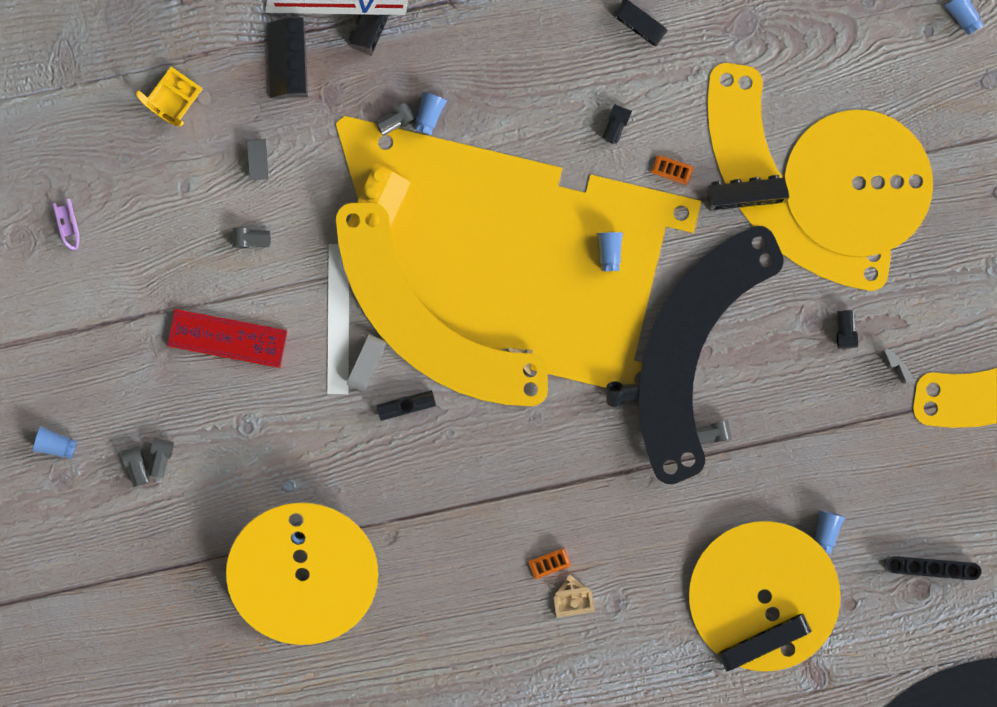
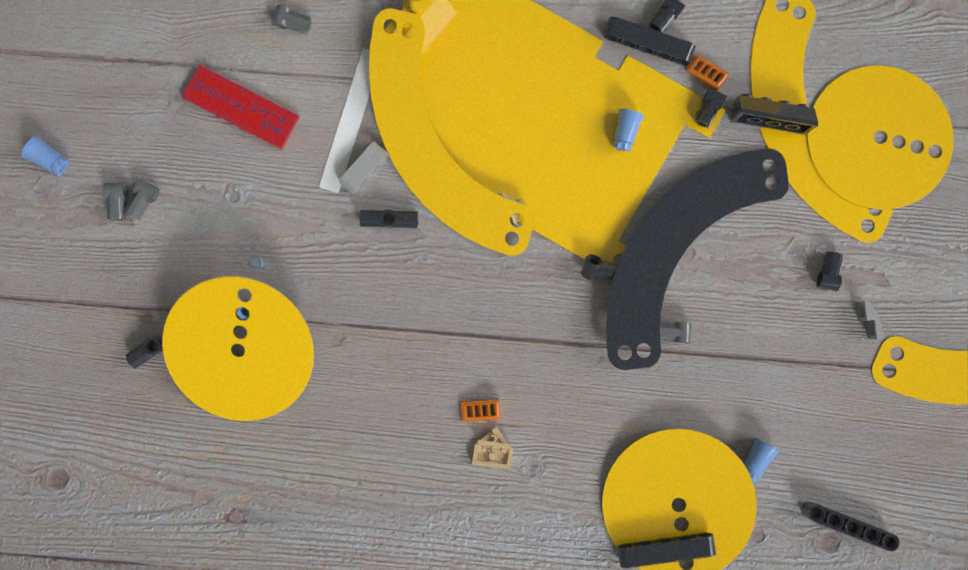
camera: 15 degrees right, 0 degrees up
(210, 604) = (144, 352): none -> black piece
(606, 156) = (649, 41): none -> black beam
(684, 202) = (711, 104): none -> black piece

